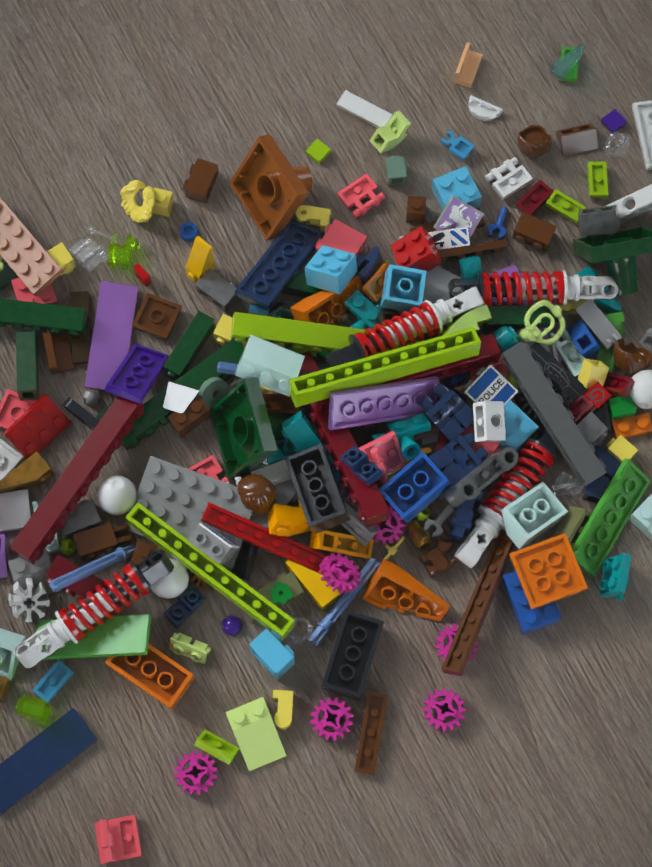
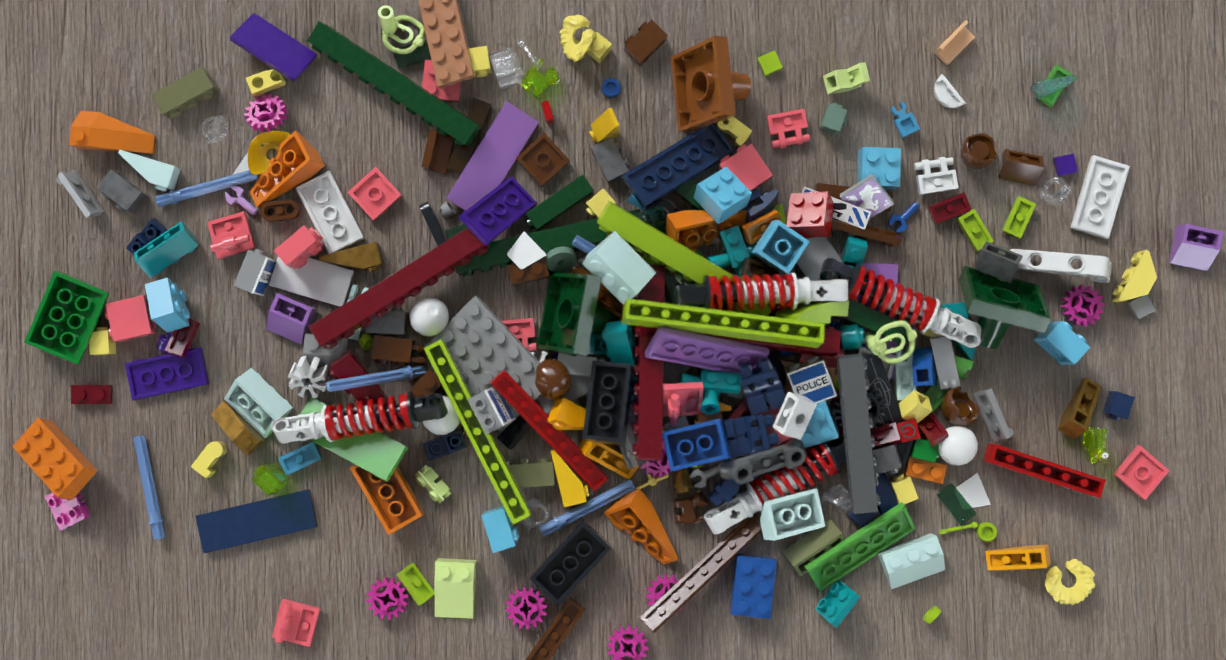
camera: 20 degrees right, 15 degrees up
(27, 365) = (402, 153): dark green brick -> none
(37, 427) = (385, 217): red plate -> none
(231, 625) = (479, 480): dark purple piece -> none
(278, 588) = (533, 472): green plant -> none
(283, 717) = (487, 583): light yellow leg -> none
(339, 573) = (591, 486): dark pink gear -> none
(360, 466) = (656, 404): dark blue slope -> none
(363, 110) = (833, 41): white tile -> none
(416, 209) = (832, 167): reddish brown brick -> none
(534, 232) = (931, 242): reddish brown brick -> none
(548, 571) = (778, 576): orange plate -> none

